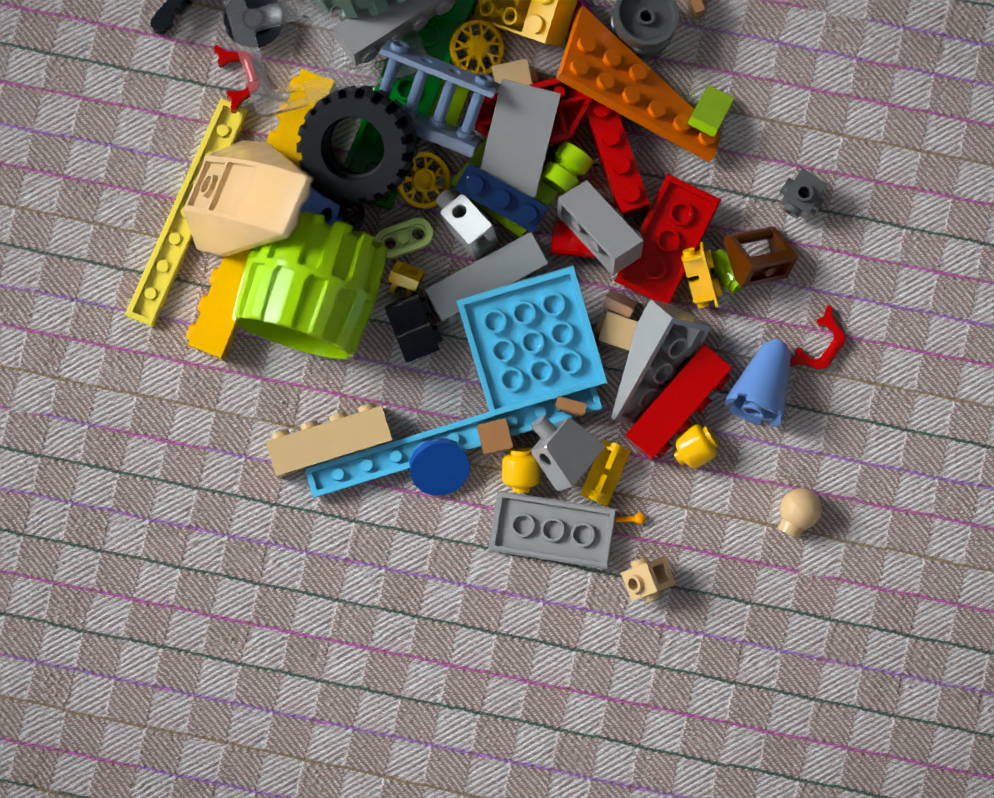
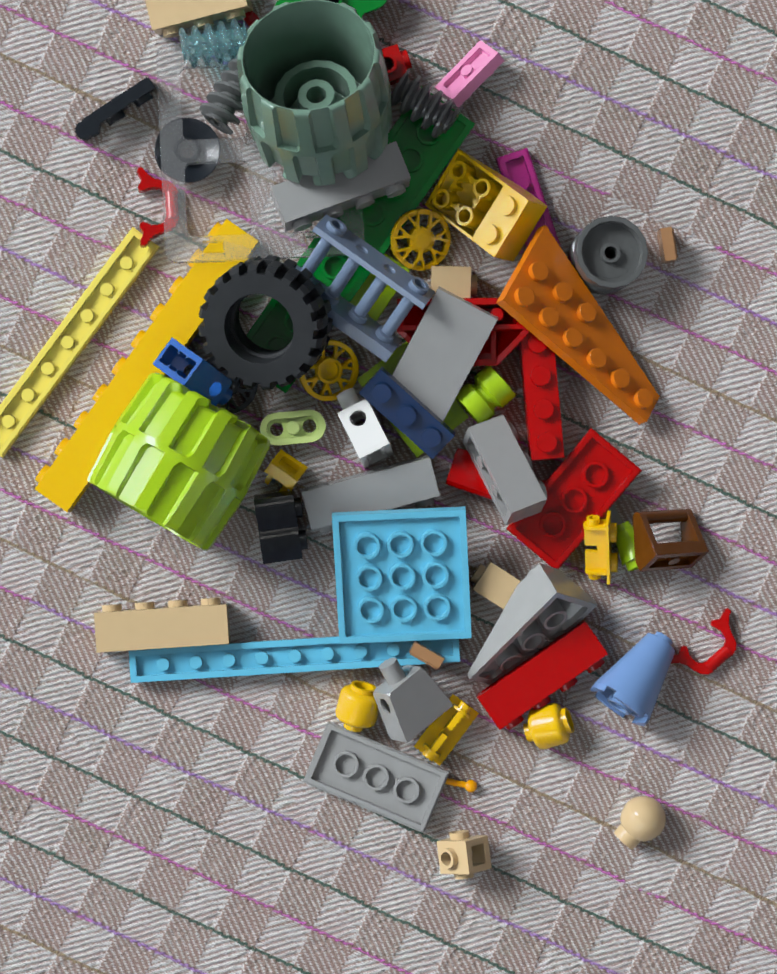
camera: 10 degrees right, 5 degrees up
(245, 198) = (132, 351): tan wedge -> none
(439, 466) = (272, 683): blue tile -> none
(494, 436) = (338, 665): medium nougat tile -> none
(619, 304) = (505, 554): medium nougat tile -> none
(710, 111) = (655, 370): lime tile -> none
(809, 187) = (741, 481): dark grey brick -> none

